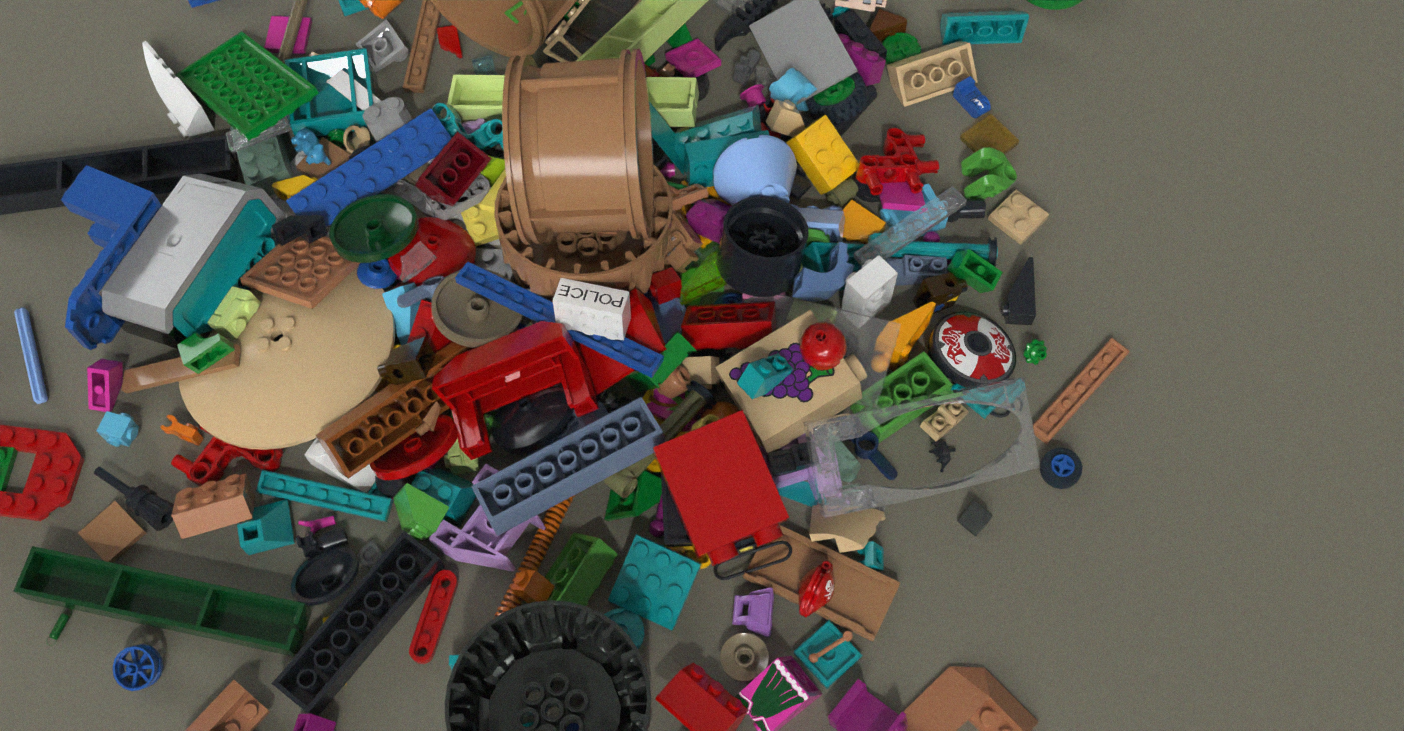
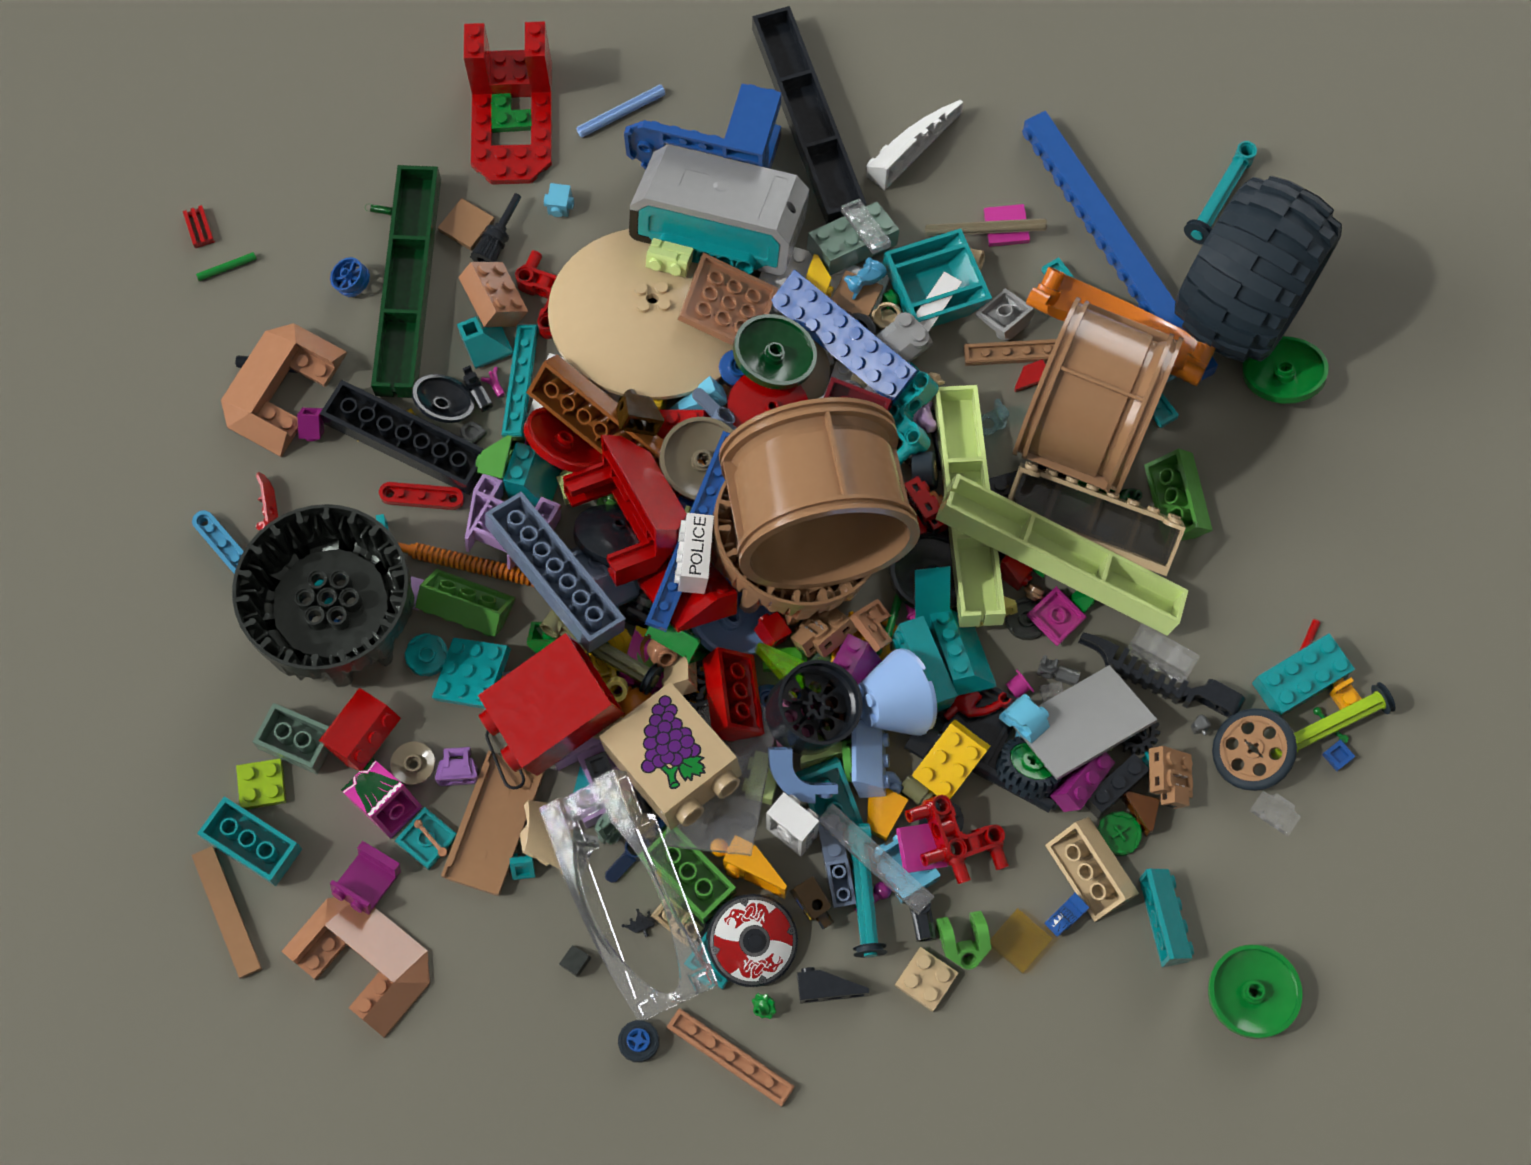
camera: 80 degrees right, 5 degrees up
(104, 384) = (600, 176): dark pink slope -> none
(172, 371) = (617, 232): medium nougat tile -> none
(185, 432) = (563, 254): orange plate -> none
(201, 353) = (624, 240): green arch -> none
(246, 85) = (921, 201): green plate -> none
(305, 226) = (769, 283): black slope -> none
(415, 261) = (744, 395): clear slope -> none
(429, 420) = (590, 447): medium nougat bar -> none
(532, 586) = (451, 568): orange brick -> none
(764, 375) = (659, 724): teal slope -> none
(785, 118) = (985, 717): tan slope -> none
(816, 588) = (483, 817): red hat -> none
(823, 345) = (696, 772): red cylinder -> none
(974, 270) = (841, 932): green brick -> none

